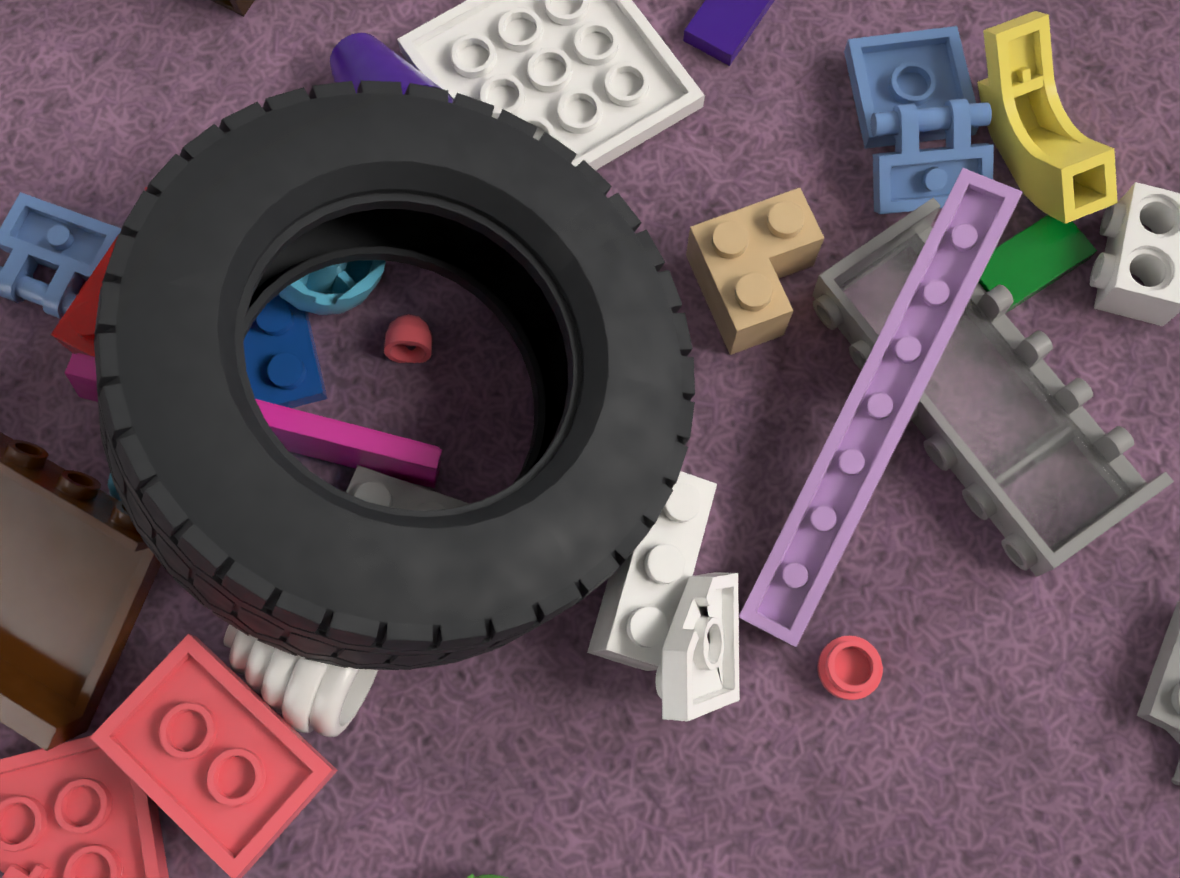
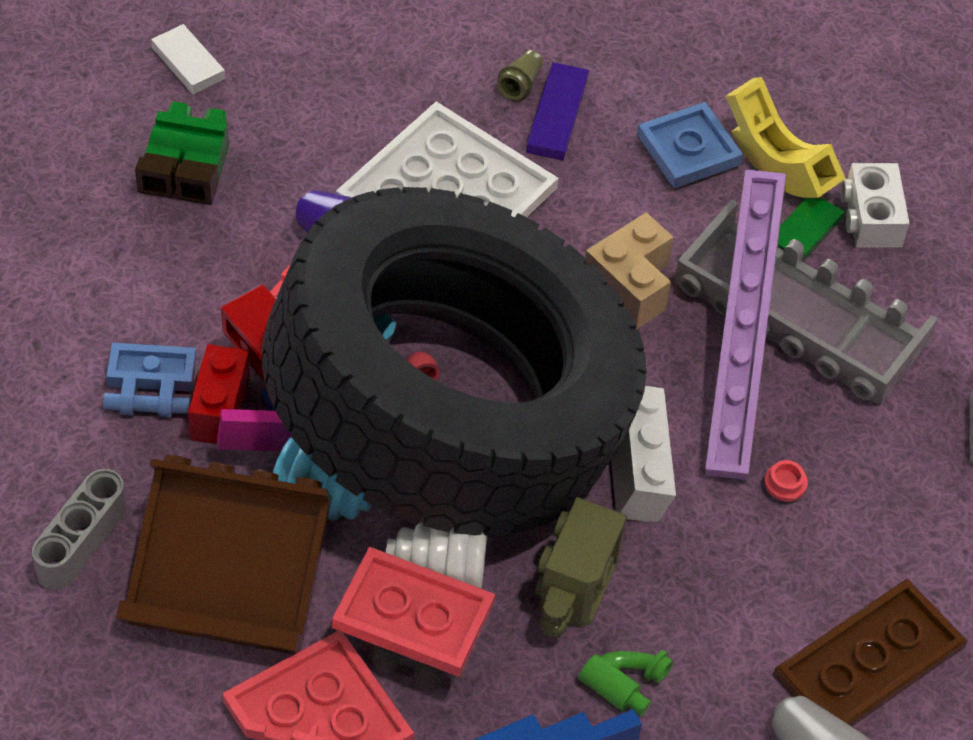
camera: 25 degrees left, 20 degrees down
(478, 746) = (578, 566): none -> olive hinge
(701, 649) = (693, 484): white plate -> none
(916, 175) = (708, 193): medium blue plate -> none

